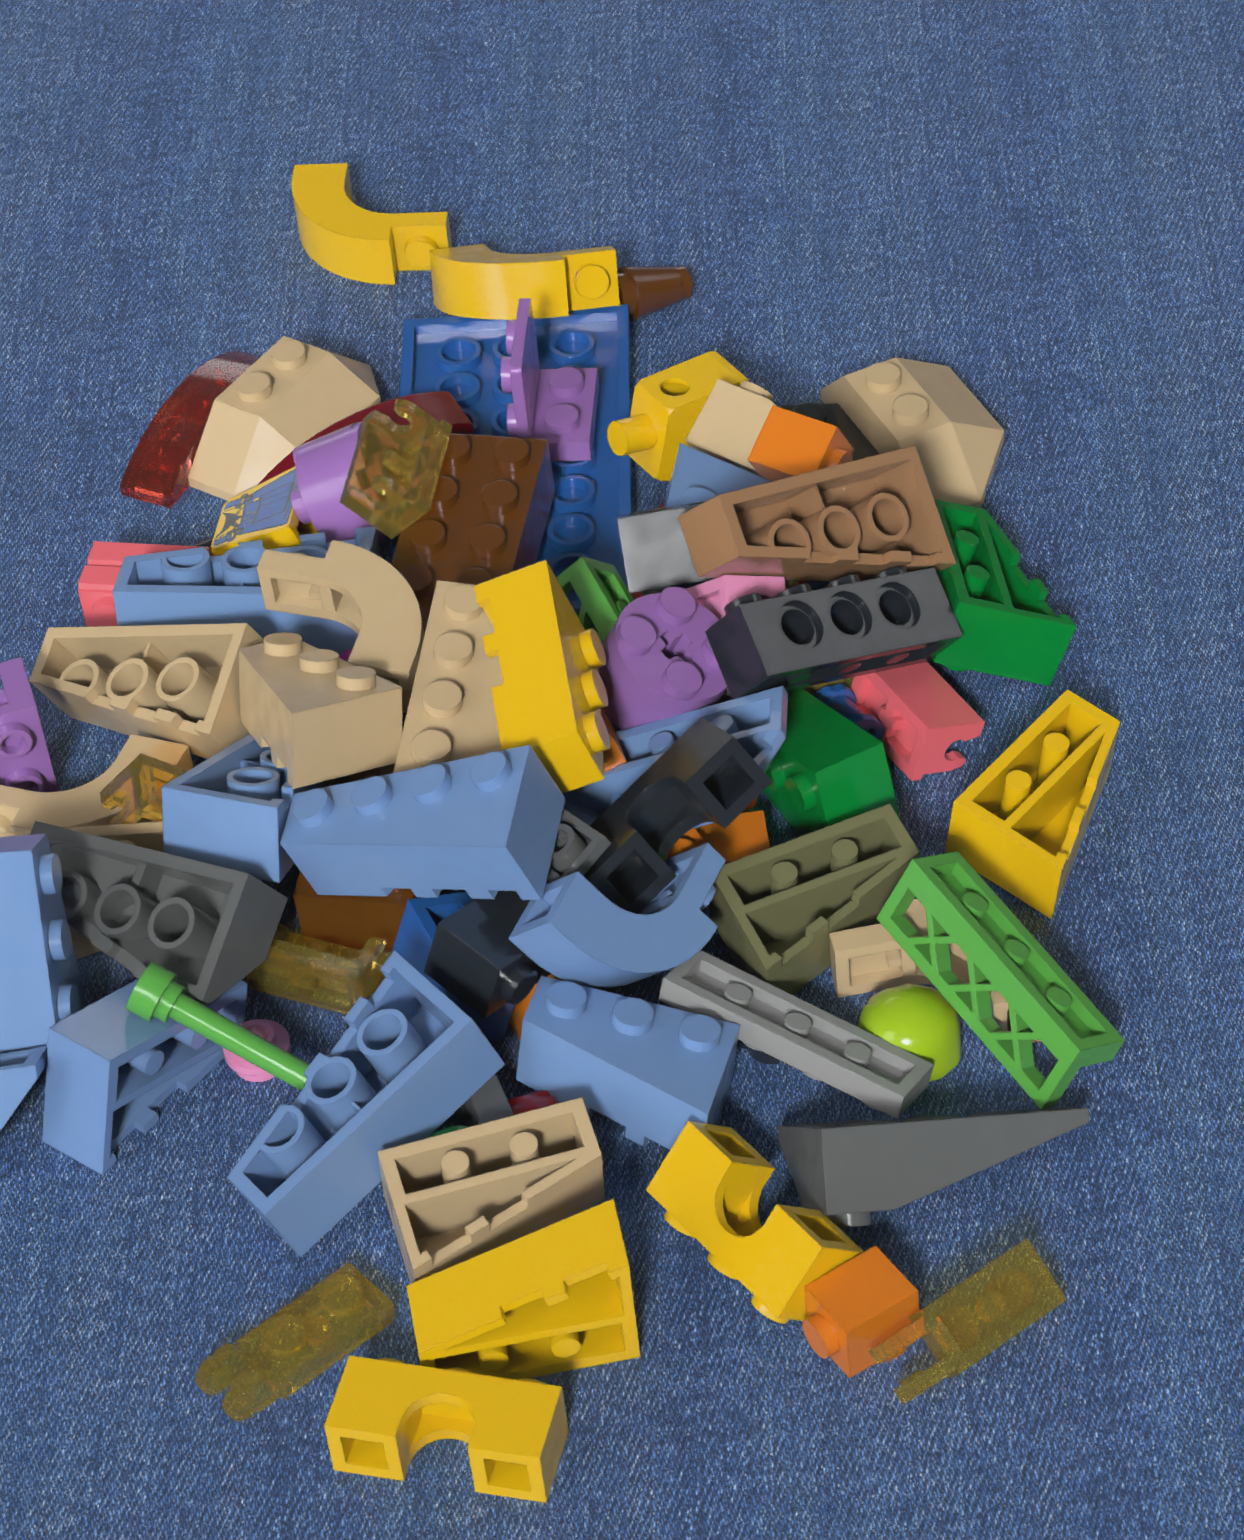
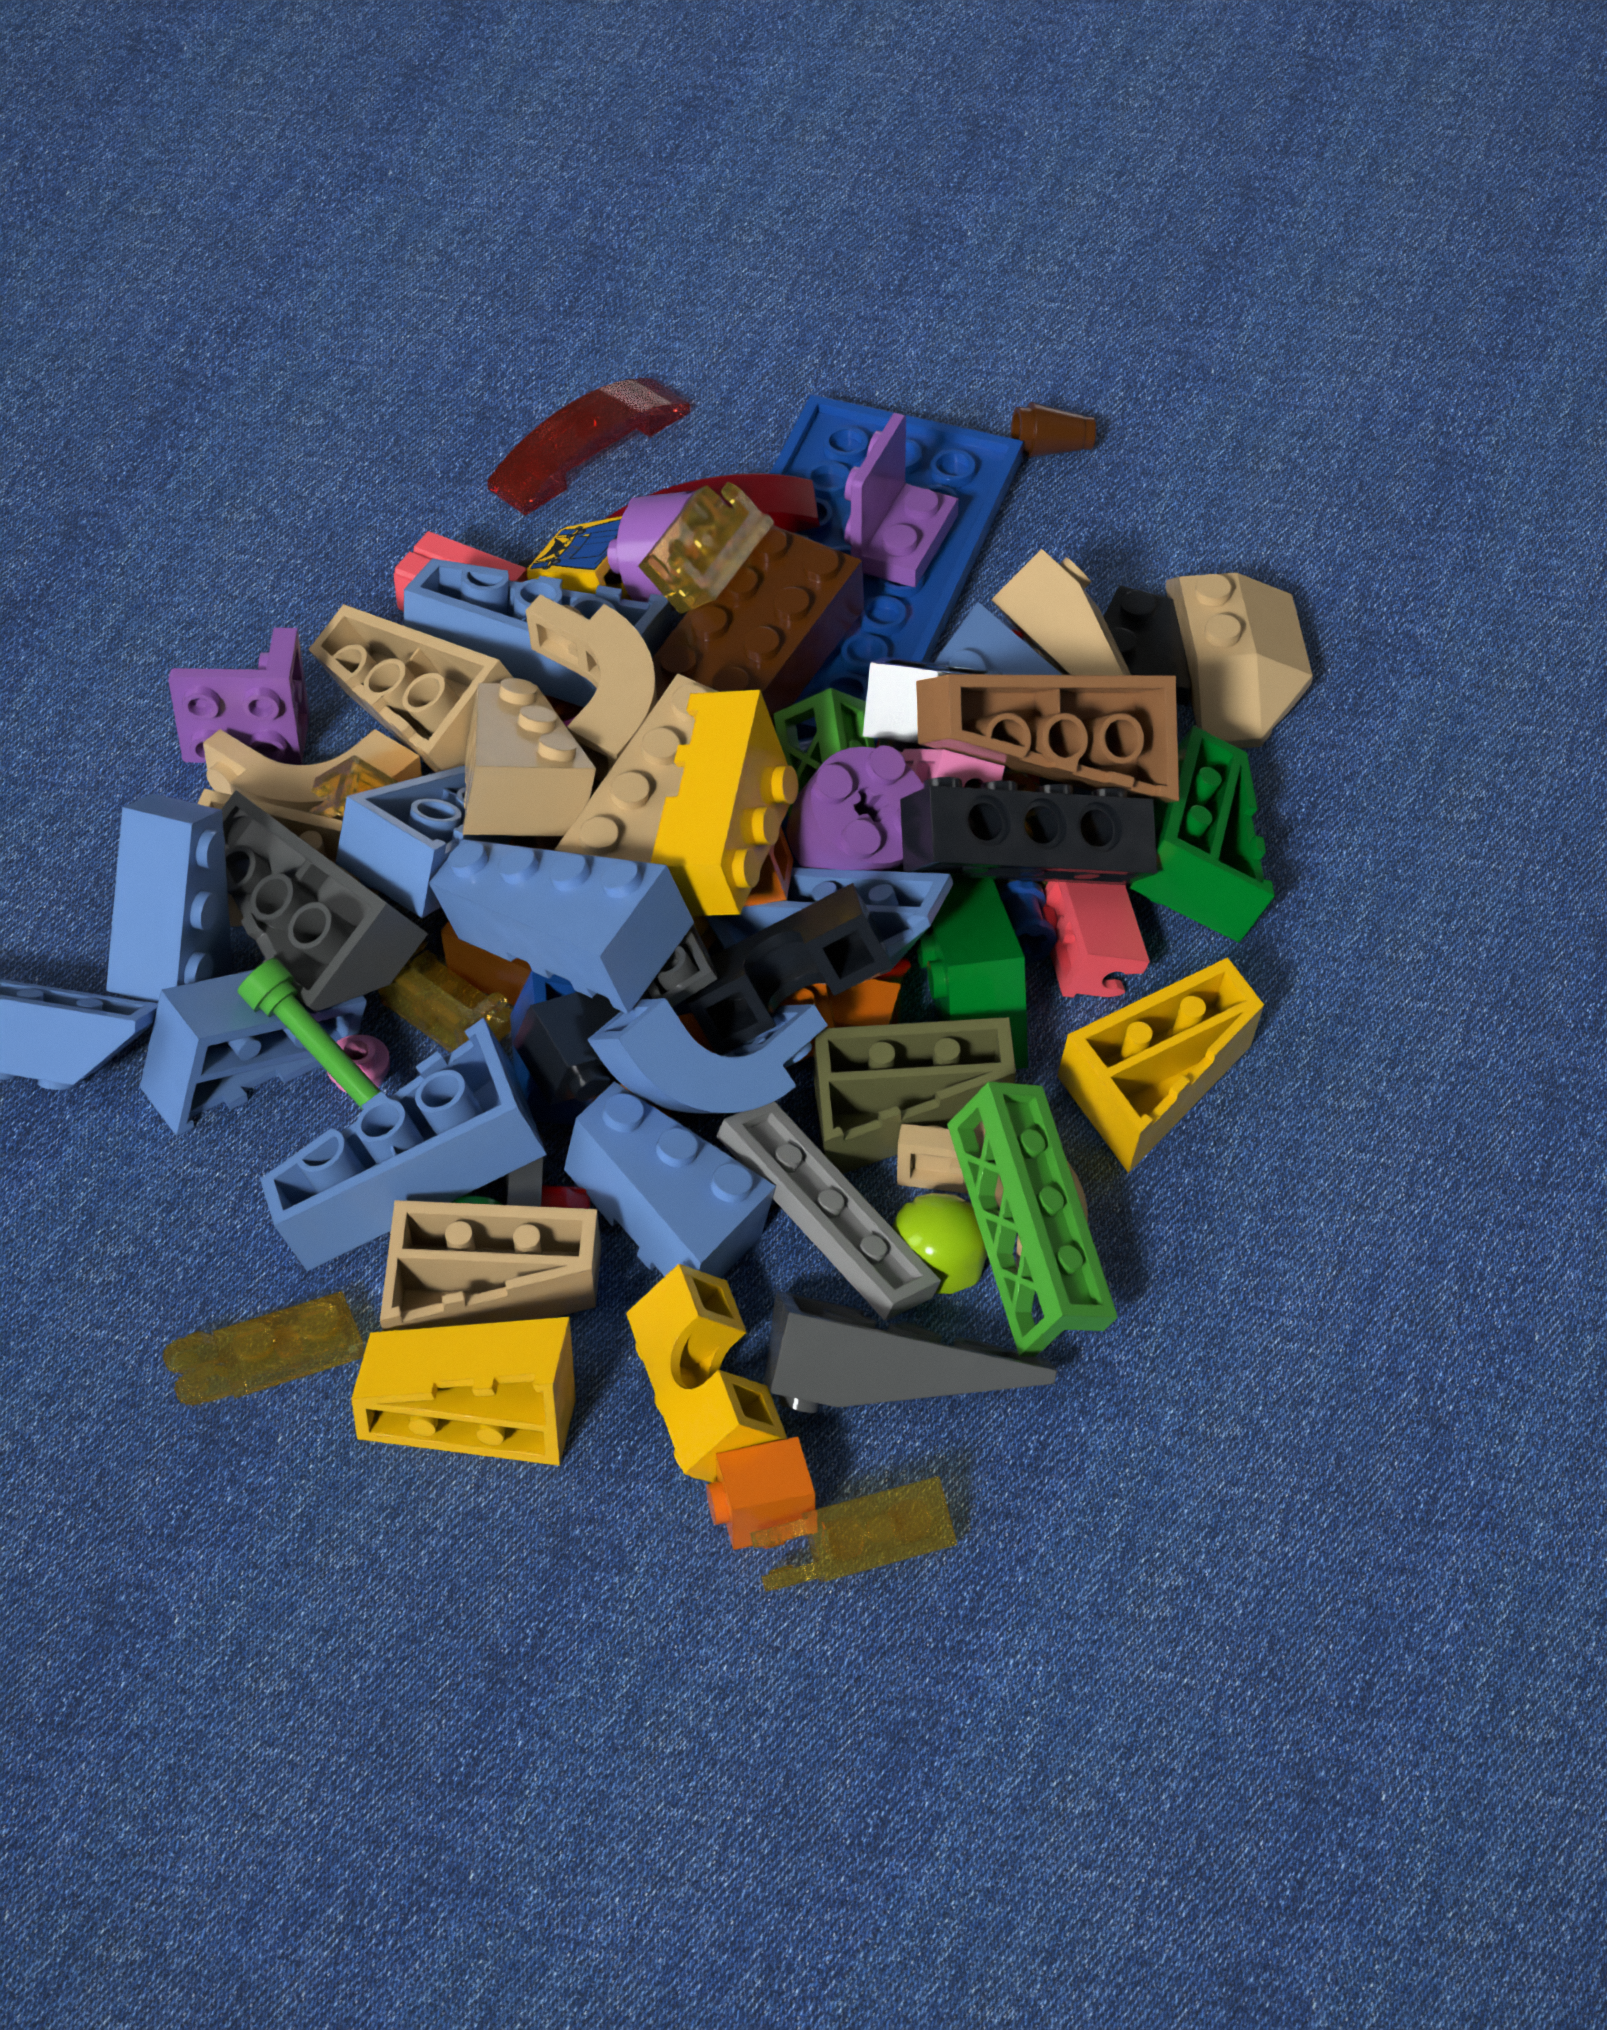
camera: 15 degrees right, 5 degrees up
(273, 410) = (657, 445): tan wedge -> none
(356, 240) = (807, 302): yellow arch -> none
(396, 1408) = (313, 1442): yellow arch -> none
(488, 283) = (933, 396): yellow arch -> none
(666, 410) = (994, 557): yellow torso -> none
(797, 445) = (1080, 642): orange brick -> none

